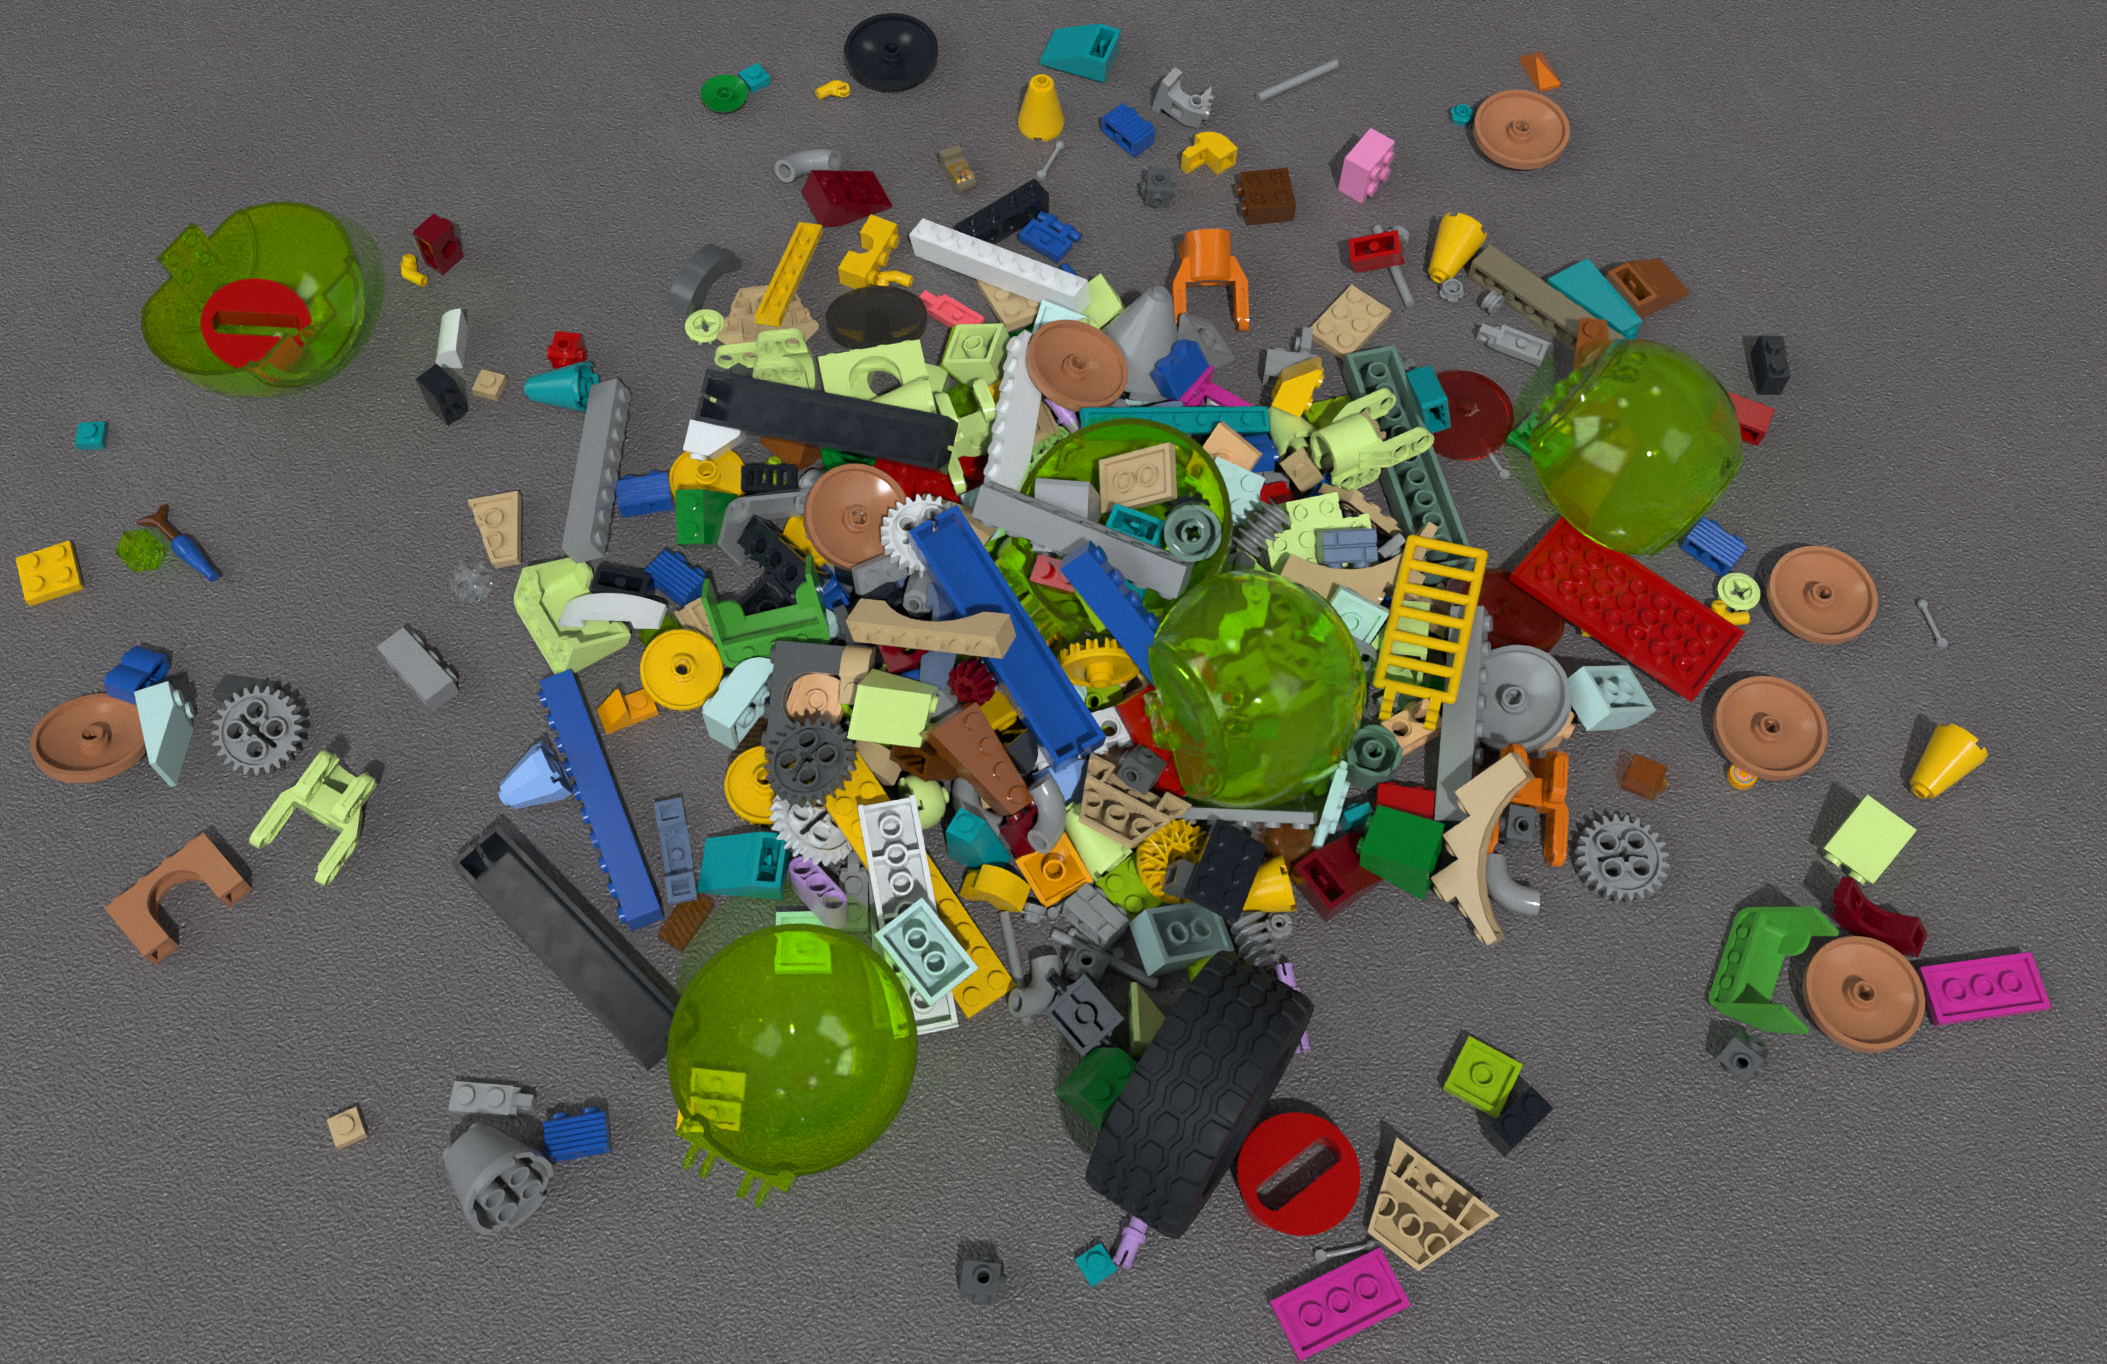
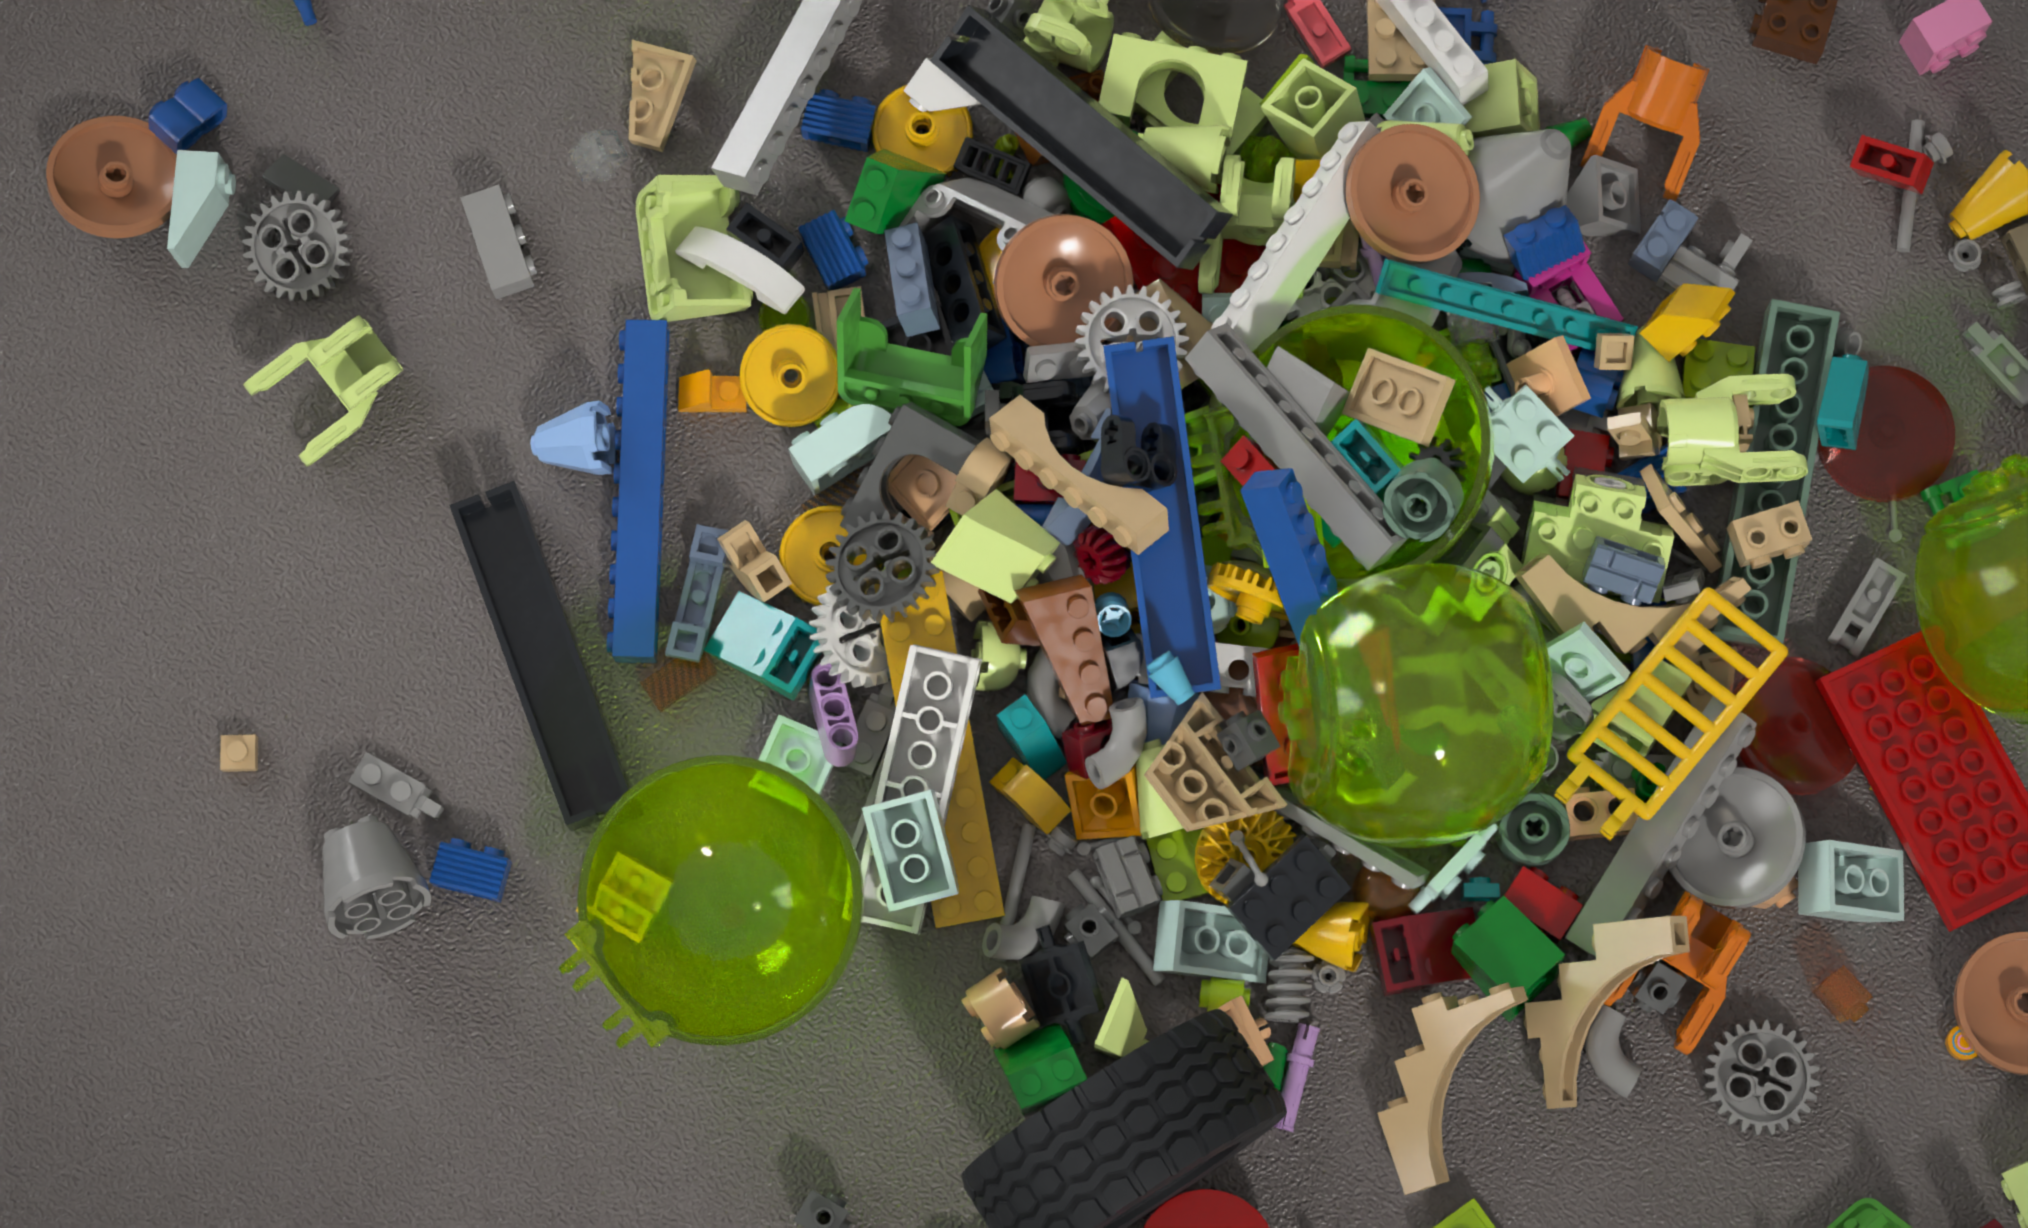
camera: 30 degrees right, 15 degrees up
(138, 907) = (102, 405): nougat arch -> none
(709, 814) = (752, 564): none -> tan brick
(744, 564) = (912, 279): none -> sand blue brick
(963, 596) = (1140, 468): none -> black piece
(1005, 727) = (1115, 621): none -> medium azure wheel
(1047, 1052) = (1000, 1009): none -> light nougat brick
(1066, 741) = (1171, 677): none -> medium azure cone
(1167, 846) = (1238, 839): none -> light grey hinge
(1253, 353) = (1663, 240): none -> sand blue brick
(1260, 424) = (1613, 351): none -> tan plate
(1262, 529) = (1531, 510): light grey piece -> none
(1349, 322) = (1809, 245): tan plate -> none
(1388, 955) = (1415, 1120): none -> tan arch
(1428, 492) = (1769, 535): none -> tan brick
(1512, 522) = (1867, 606): none -> light grey plate

